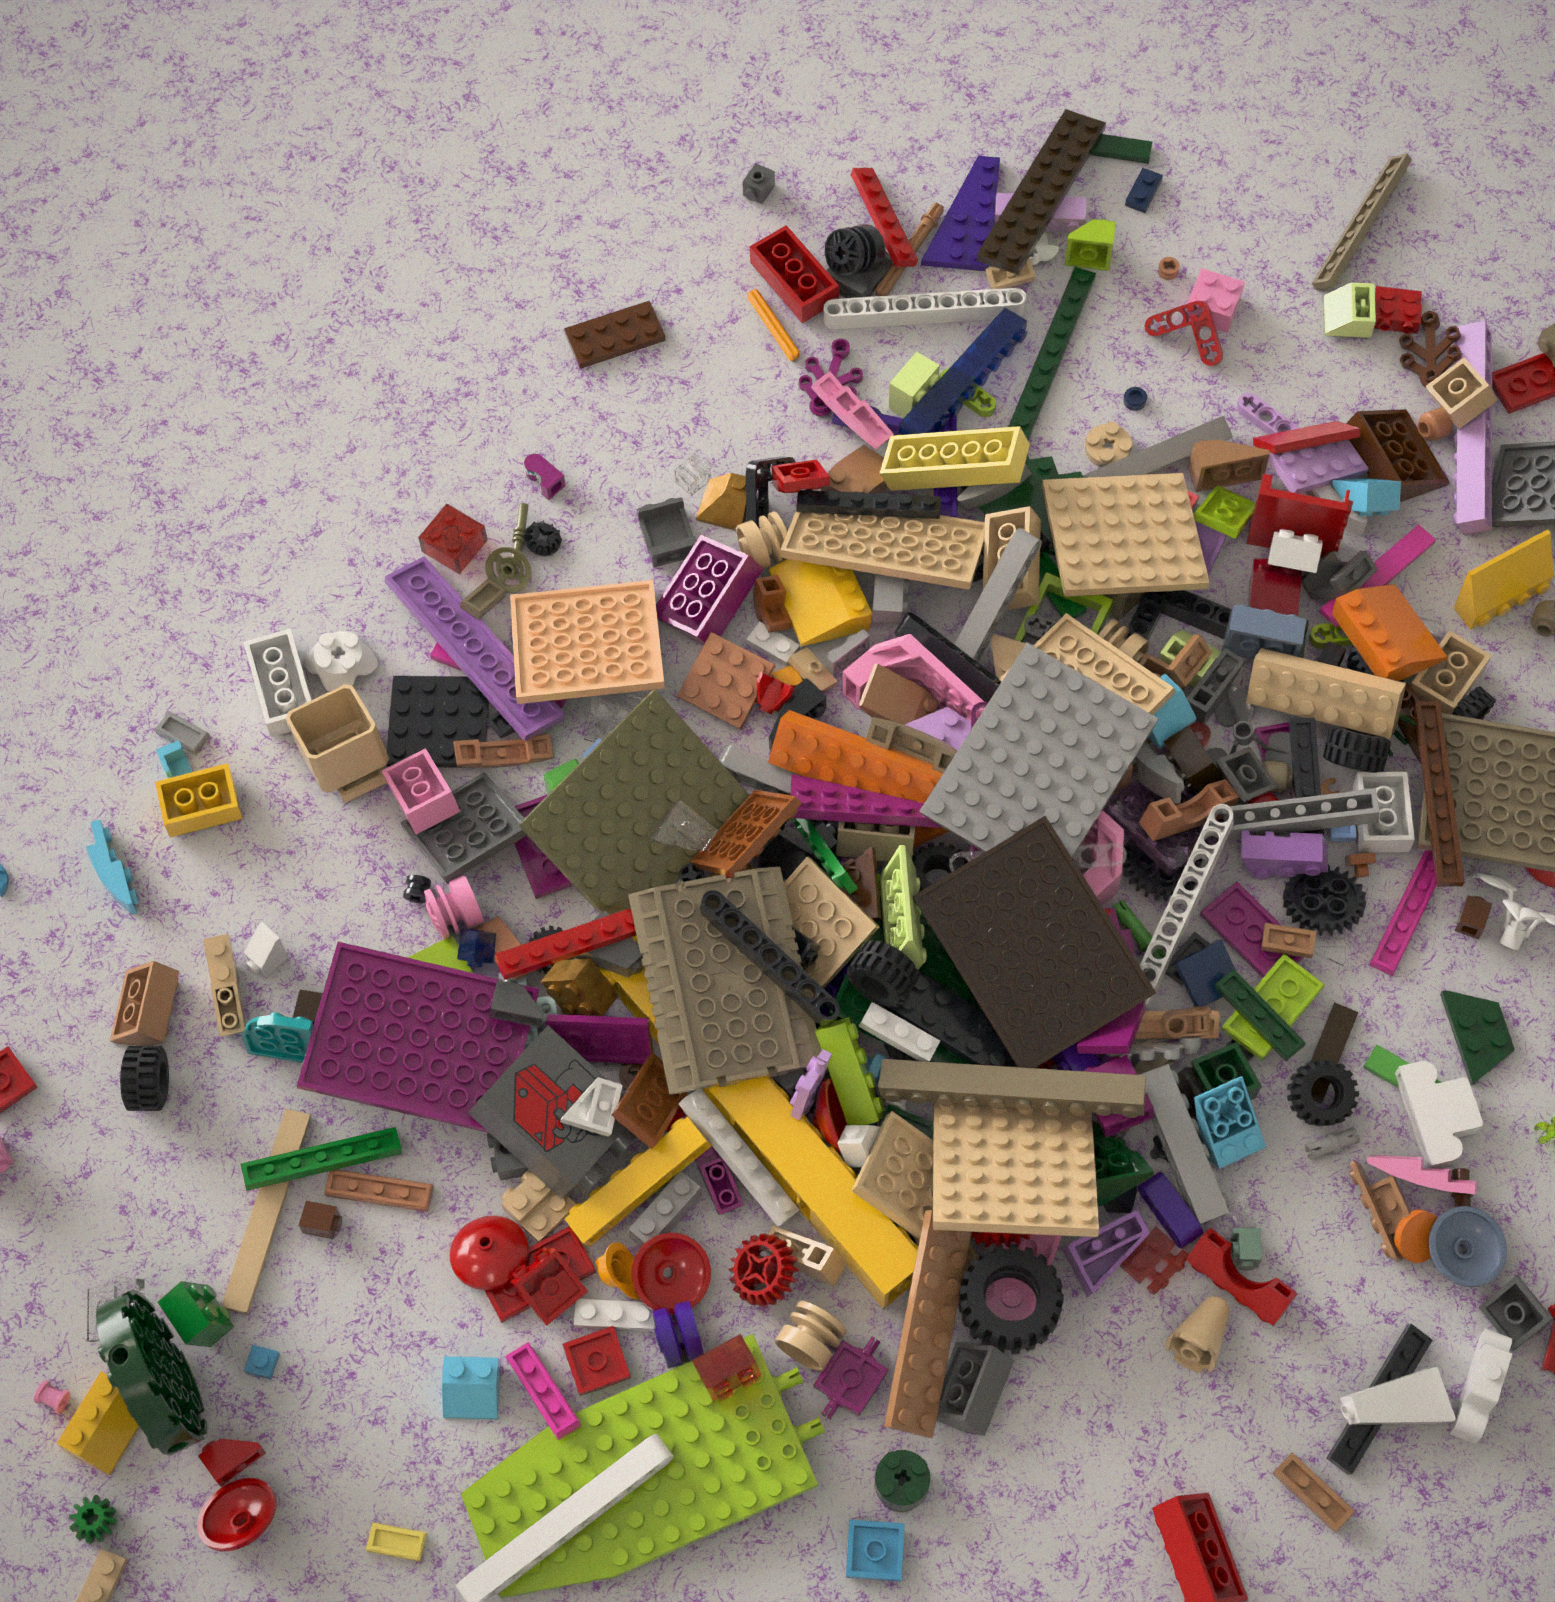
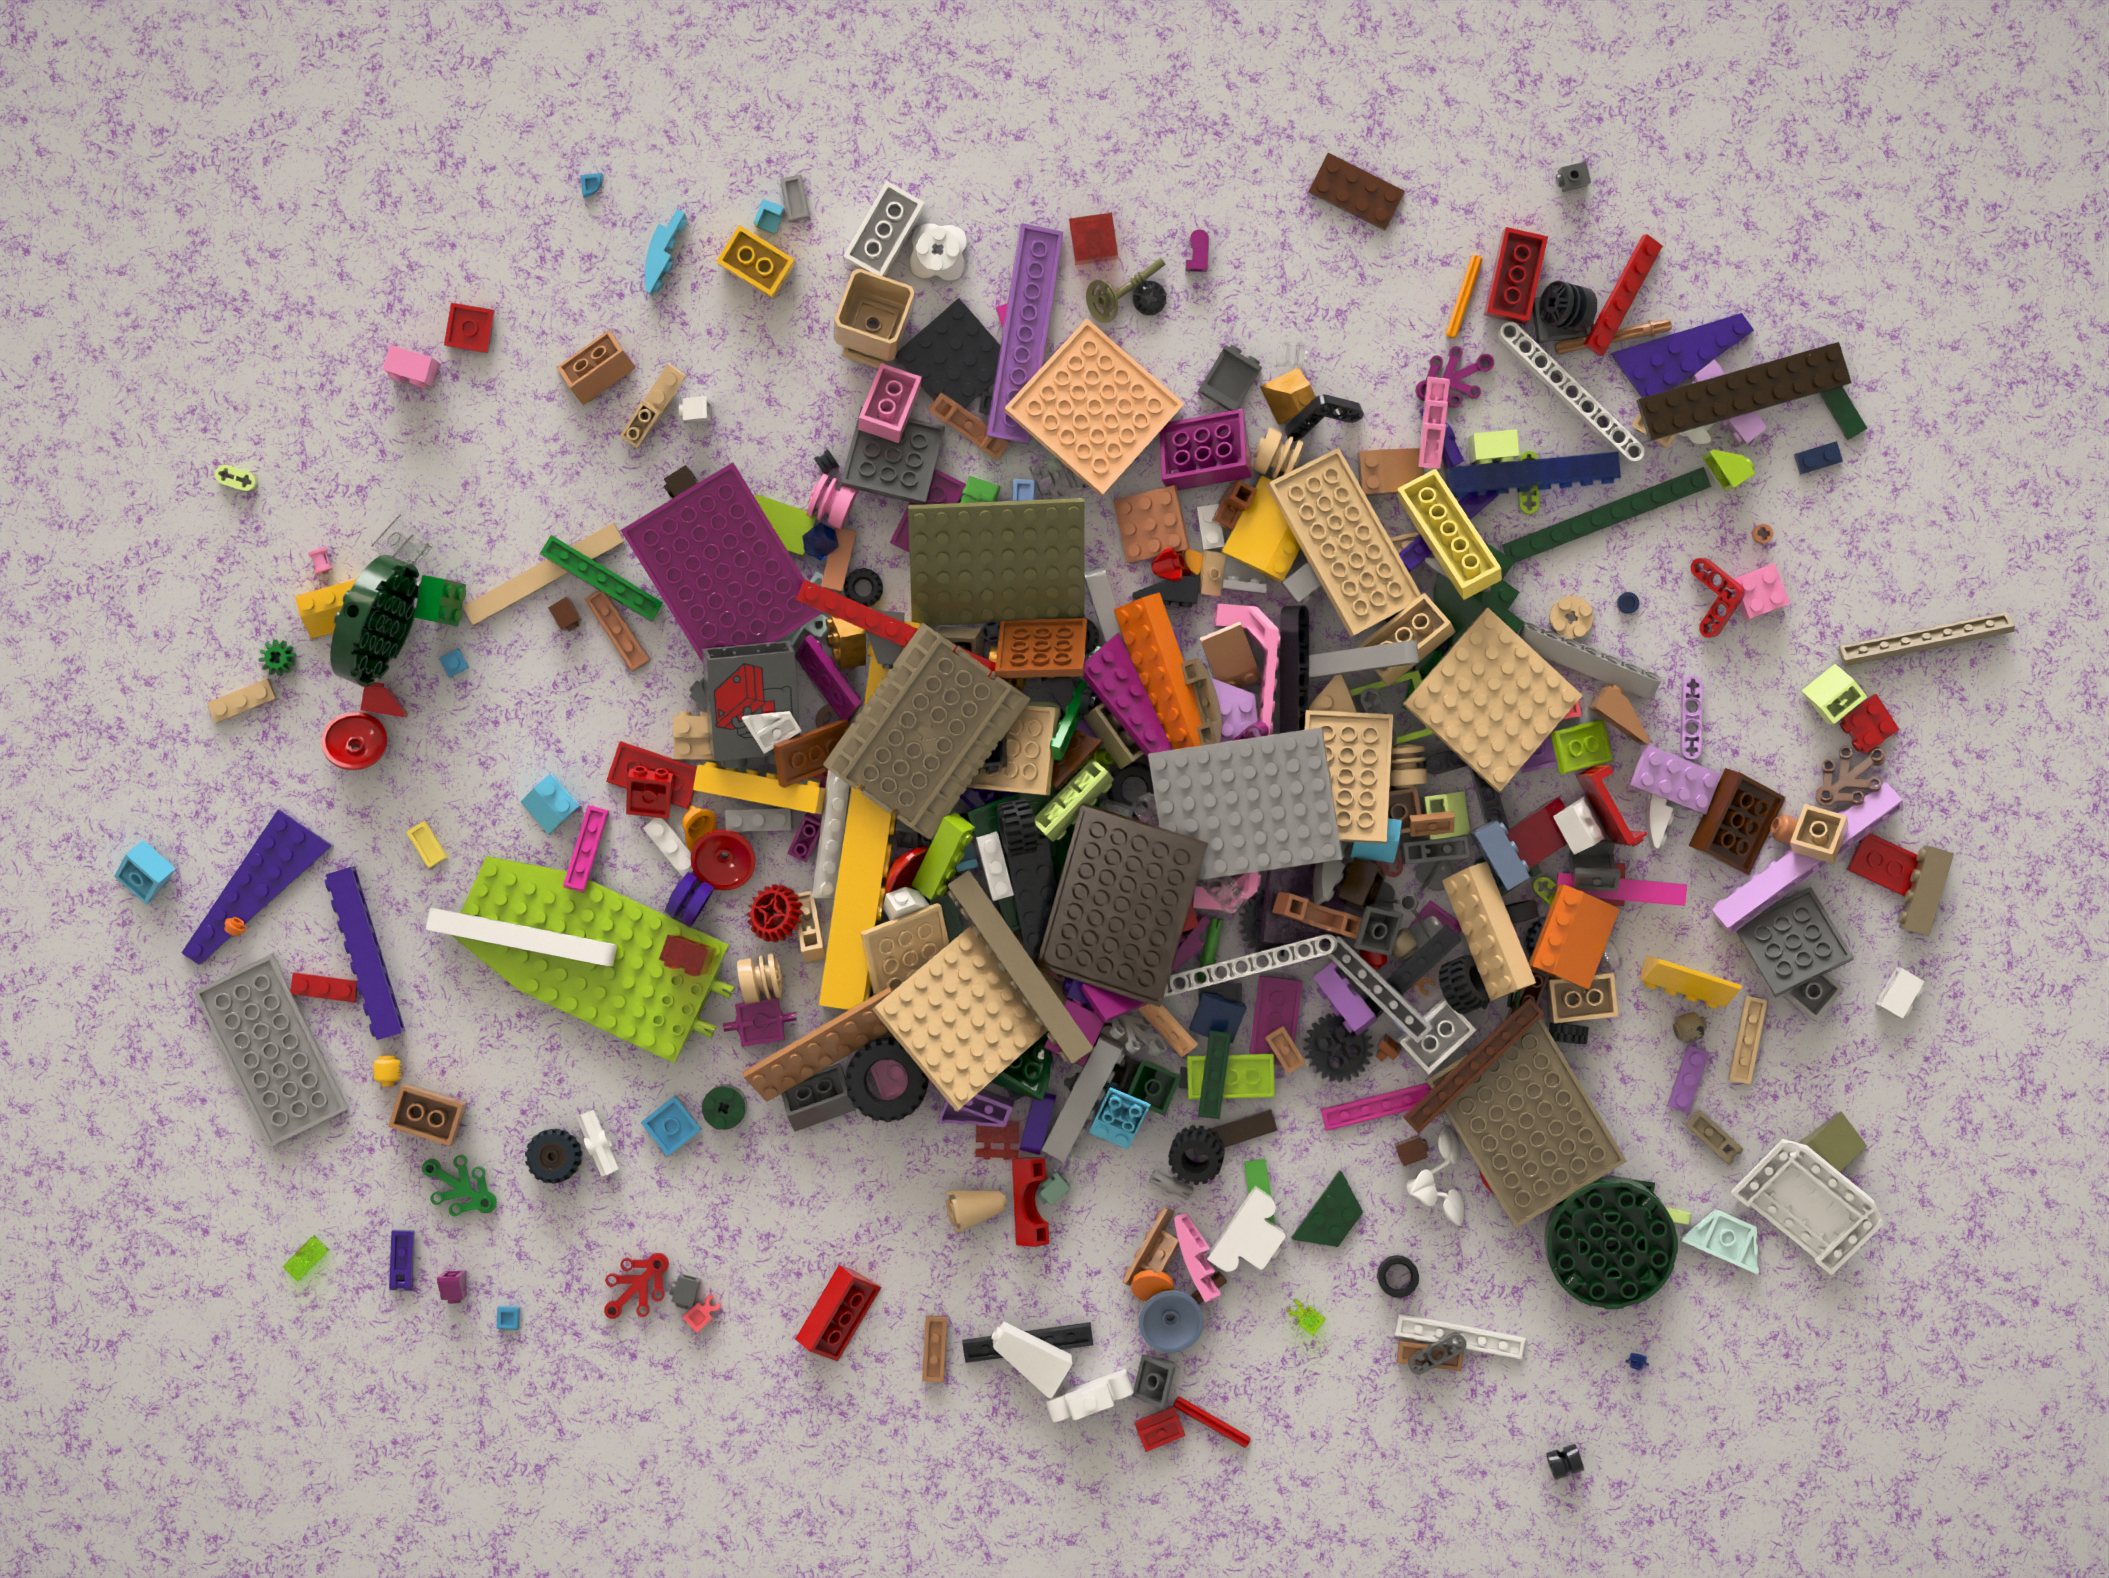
camera: 50 degrees right, 25 degrees up
(144, 1078) = (547, 421): black tyre -> none
(278, 1037) = (647, 479): teal plate -> none
(483, 599) = (1066, 304): dark tan tile -> none
(493, 1264) = (642, 749): red dish -> none
(514, 1004) = (796, 612): dark grey slope -> none
(596, 1361) = (633, 862): red plate -> none
(684, 829) = (1013, 602): clear wing -> none
(772, 970) = (959, 740): black beam -> none
(798, 476) = (1343, 439): red plate -> none
(809, 1084) = (913, 844): lavender plate -> none
(868, 504) = (1365, 503): black plate -> none
(1193, 1022) = (1168, 1034): medium nougat piece -> none
(1306, 437) = (1689, 754): red tile -> none
(1370, 495) = (1679, 832): medium azure slope -> none

